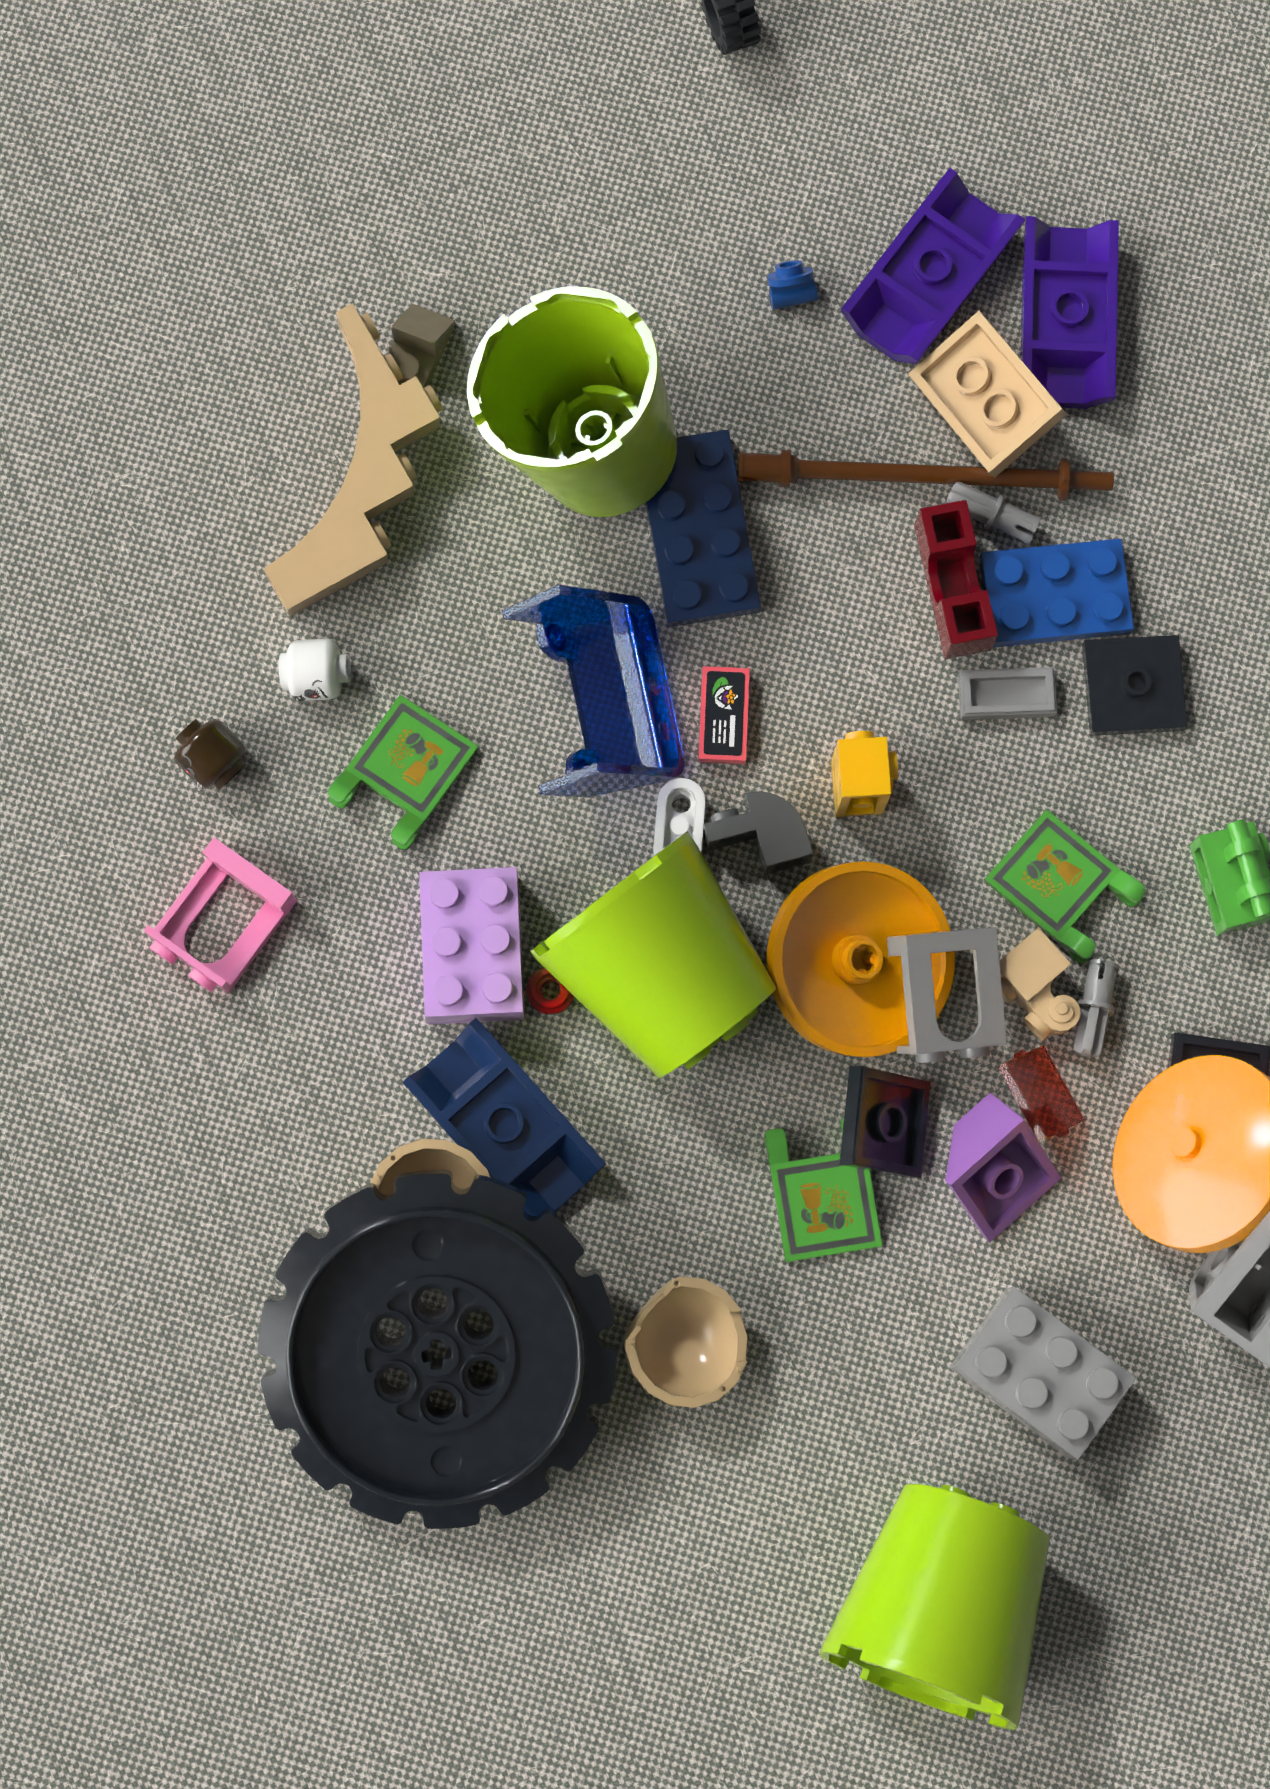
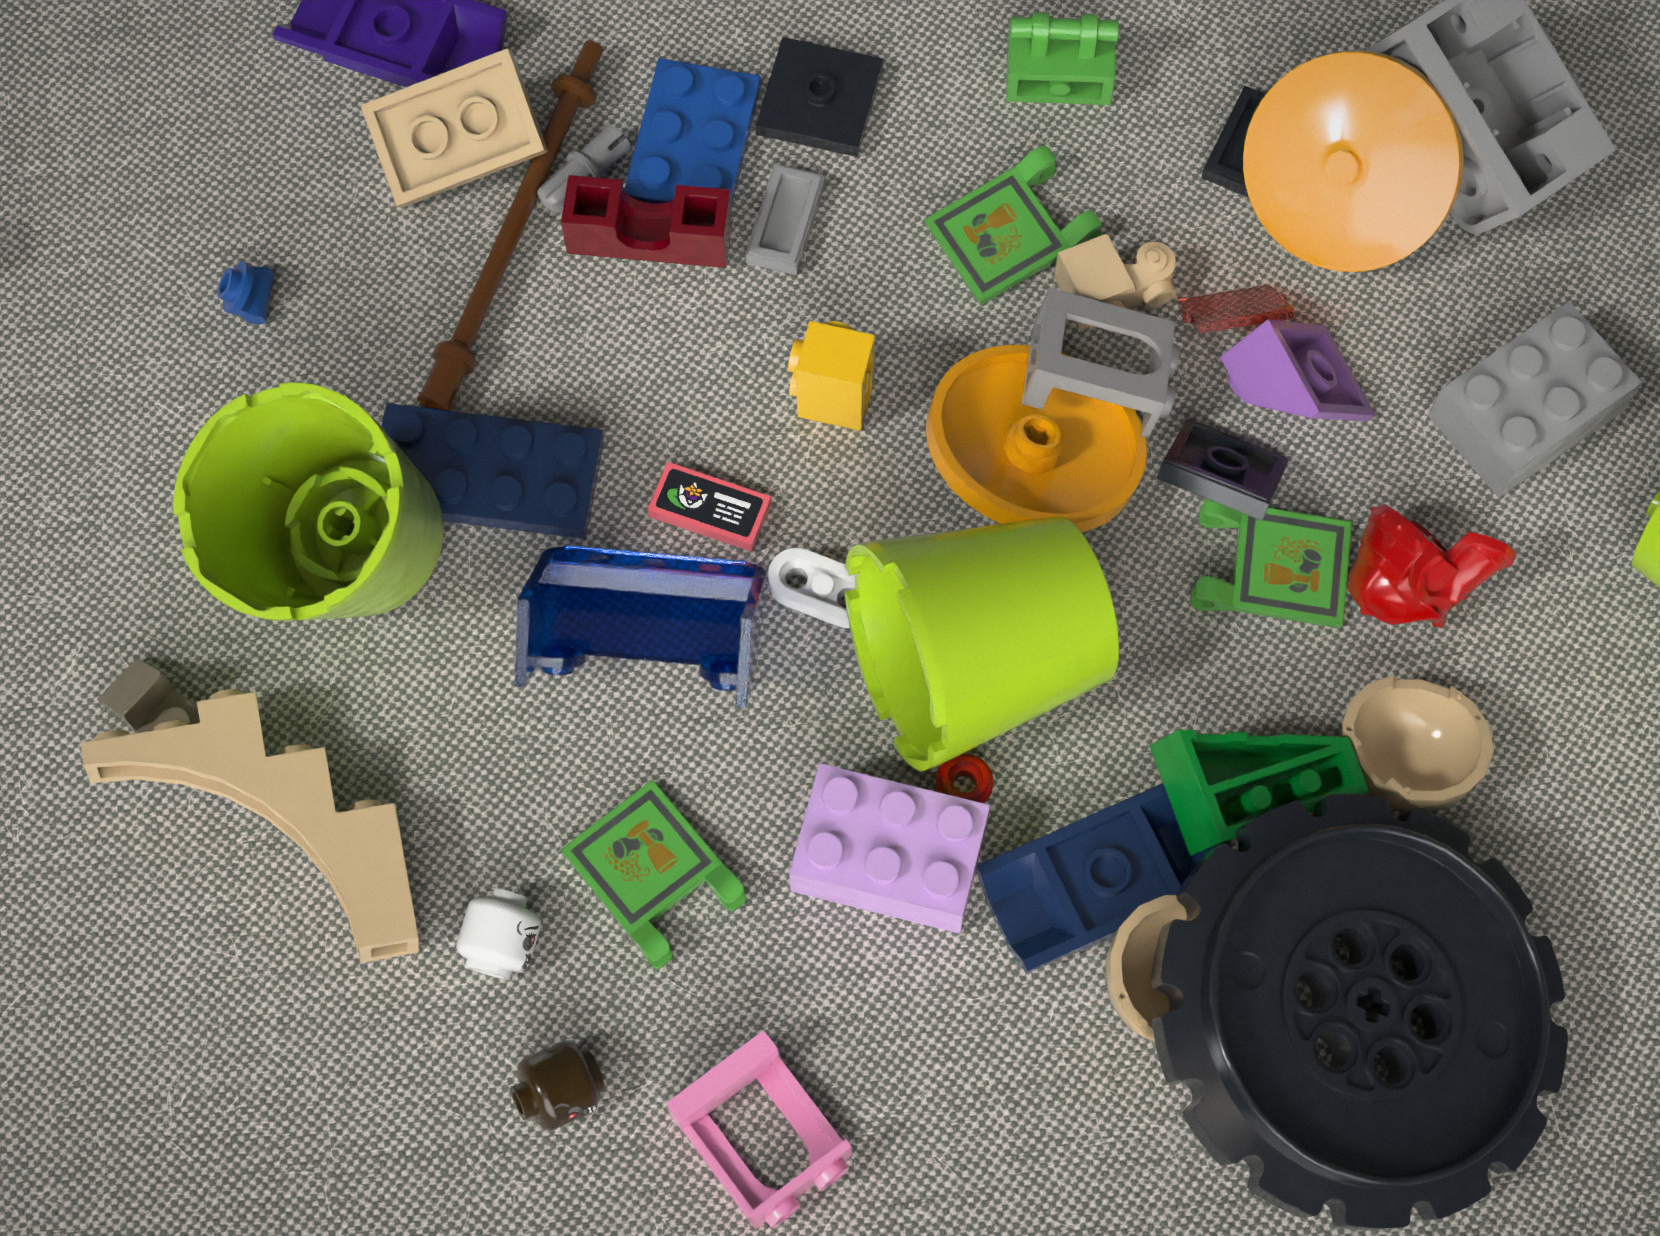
camera: 70 degrees left, 10 degrees down
(604, 1210) = (1236, 777): none -> green wedge
(772, 824) = (855, 489): dark grey brick -> none
(840, 1302) = (1411, 576): none -> red head
(929, 271) = (294, 149): dark purple piece -> none
(1095, 1008) = (1143, 228): light grey axle -> none

